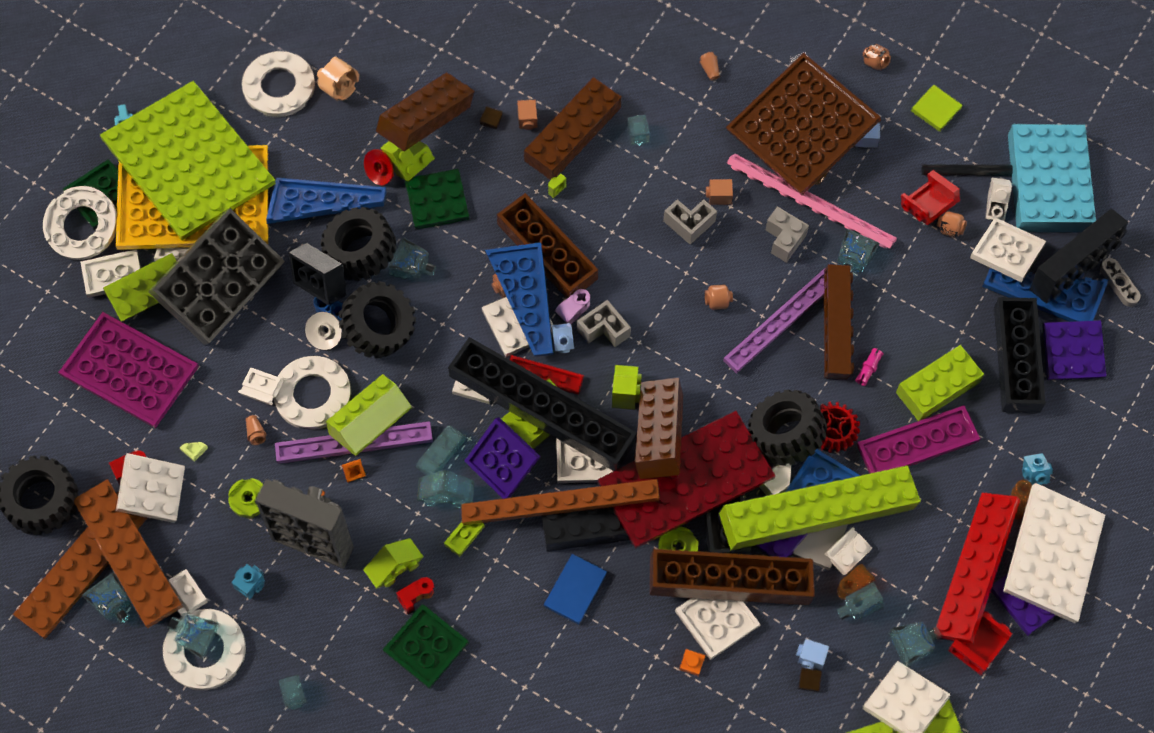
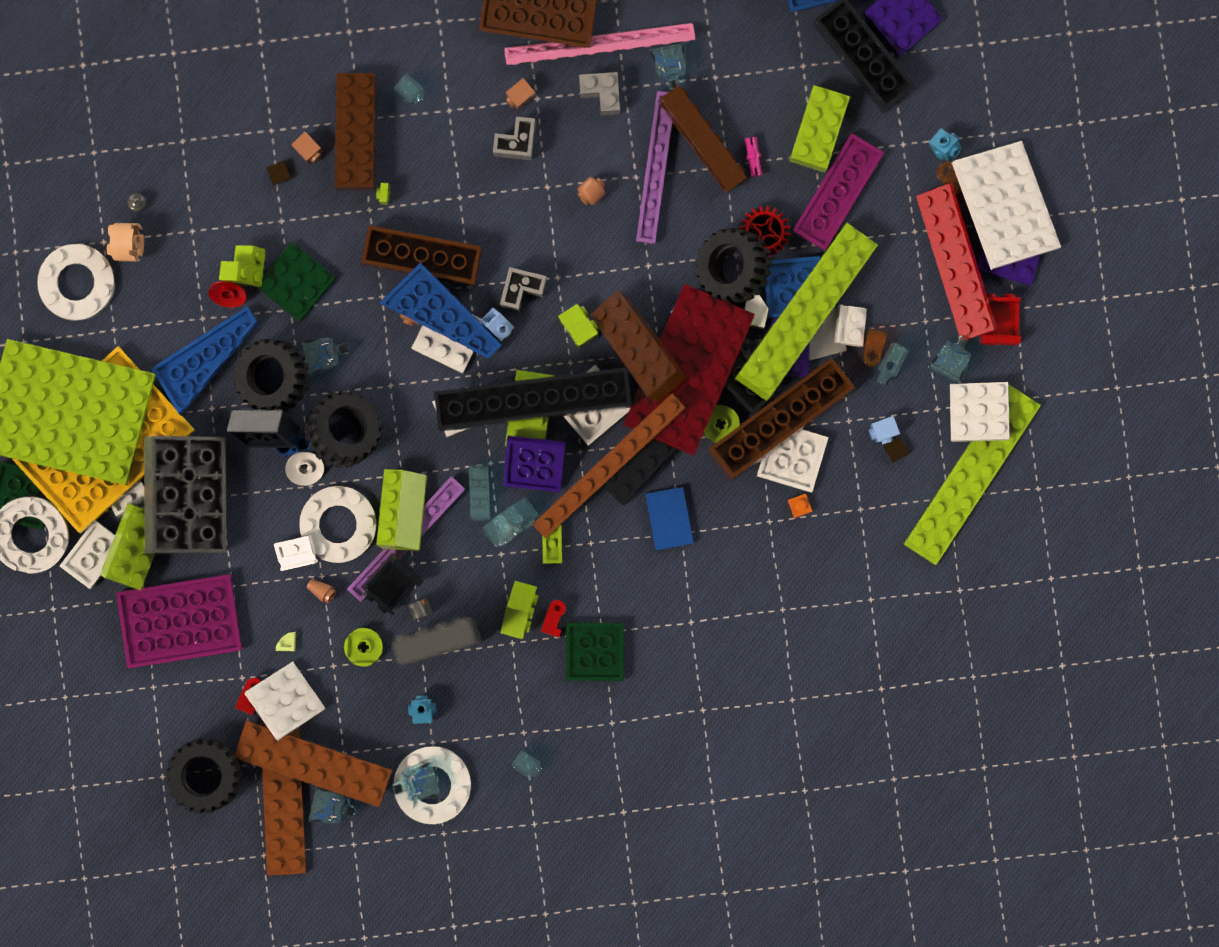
camera: 30 degrees left, 20 degrees up
(187, 592) = (382, 755): white plate -> none
(311, 464) = (390, 583): none -> black panel
(353, 470) = (425, 561): orange slope -> none
(371, 63) = (137, 202): none -> dark grey plate
(425, 111) = (228, 218): reddish brown brick -> none
(562, 378) = (506, 364): red tile -> none
(571, 308) = (483, 293): lavender piece -> none

